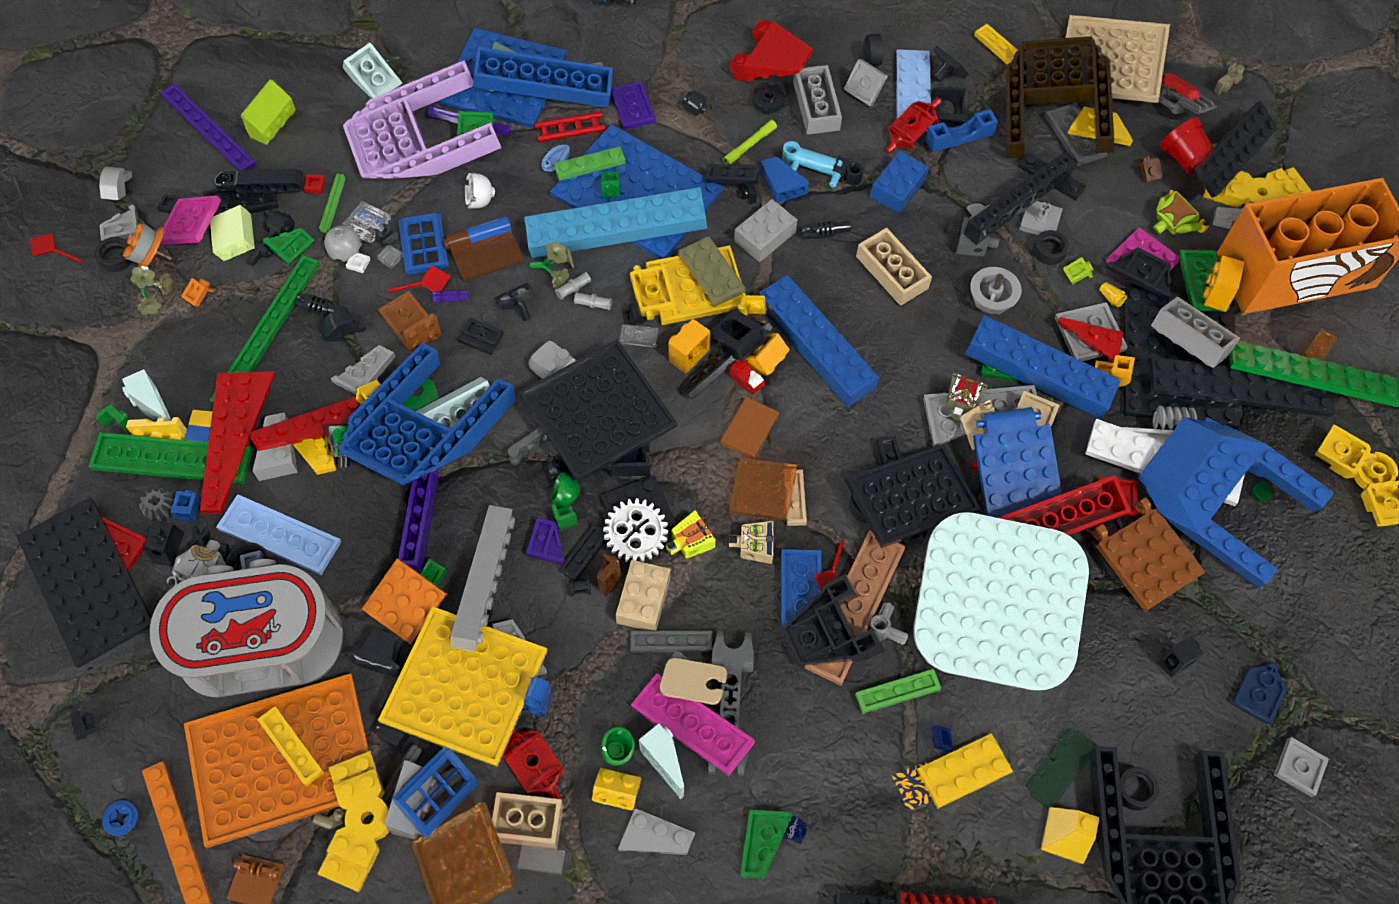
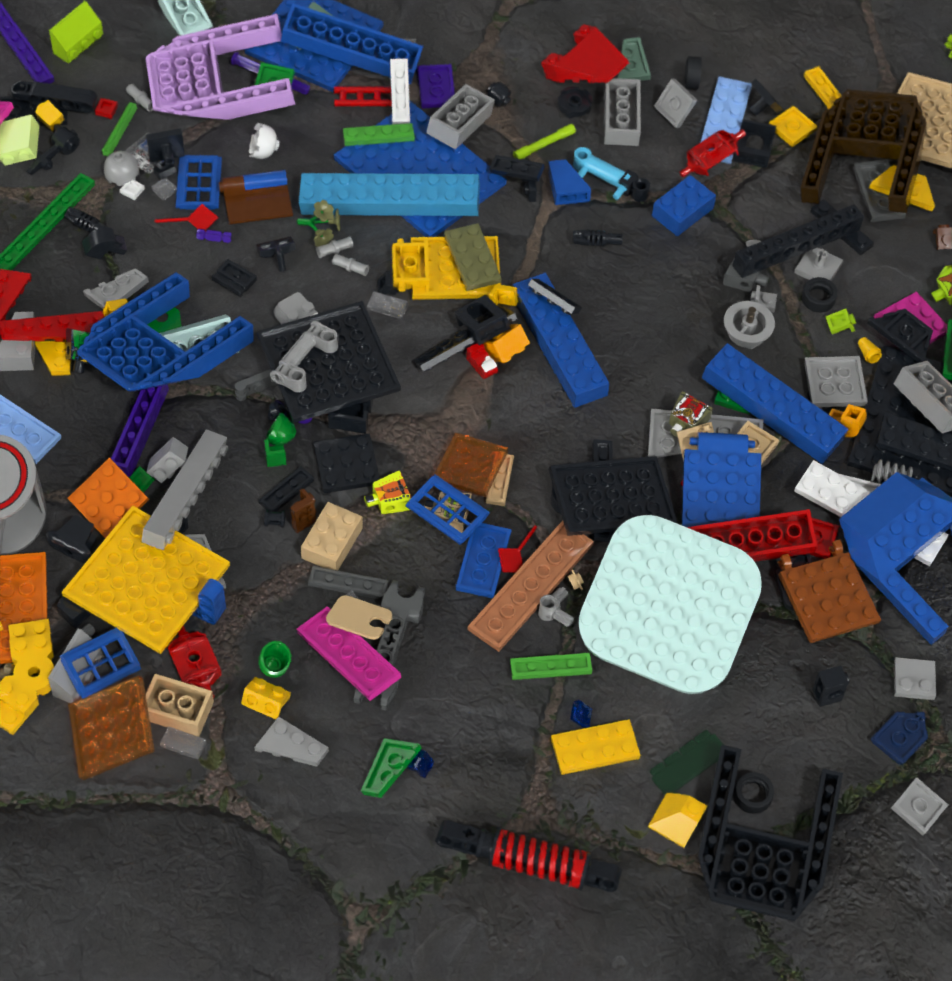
camera: 10 degrees right, 5 degrees down
(258, 201) = (49, 114): none -> yellow brick
(290, 245) = (70, 161): green wing -> none
(346, 167) = (140, 97): none -> light grey pin
(382, 212) = (165, 145): none -> black tile
(410, 321) = (170, 251): dark orange bracket -> none
(457, 547) = (167, 460): none -> light grey brick
(545, 542) = (251, 473): dark purple wing -> none
(555, 155) = (348, 120): medium blue arm -> none
(560, 429) = (295, 377): none -> light grey piece
(601, 116) = (400, 91): none -> white tile
(610, 184) = (393, 157): green bracket -> none
(623, 518) = (328, 463): white gear -> none
(661, 753) = (311, 670): light aqua slope -> none
(665, 131) = (460, 116): none -> light grey brick
(689, 346) = (432, 321): light orange brick -> none
(746, 559) = (436, 521): none -> blue piece
(749, 428) = (473, 408): dark orange tile -> none
(765, 230) = (536, 228): light grey brick -> none
(804, 299) = (554, 297): none -> plate
(821, 55) = (638, 65): none -> sand green wing
(823, 633) = (494, 597): black wedge -> none
(893, 266) = (654, 284): tan brick -> none
(898, 592) = (576, 580): none -> tan plate
(912, 787) = (541, 752): sticker -> none
(978, 127) = (780, 166): blue arch -> none
(979, 85) = (793, 126): none -> yellow plate
(999, 260) = (764, 298): none -> light grey bracket
(1099, 338) = (838, 386): red wing -> none
(1254, 627) = (914, 678): none -> light grey plate

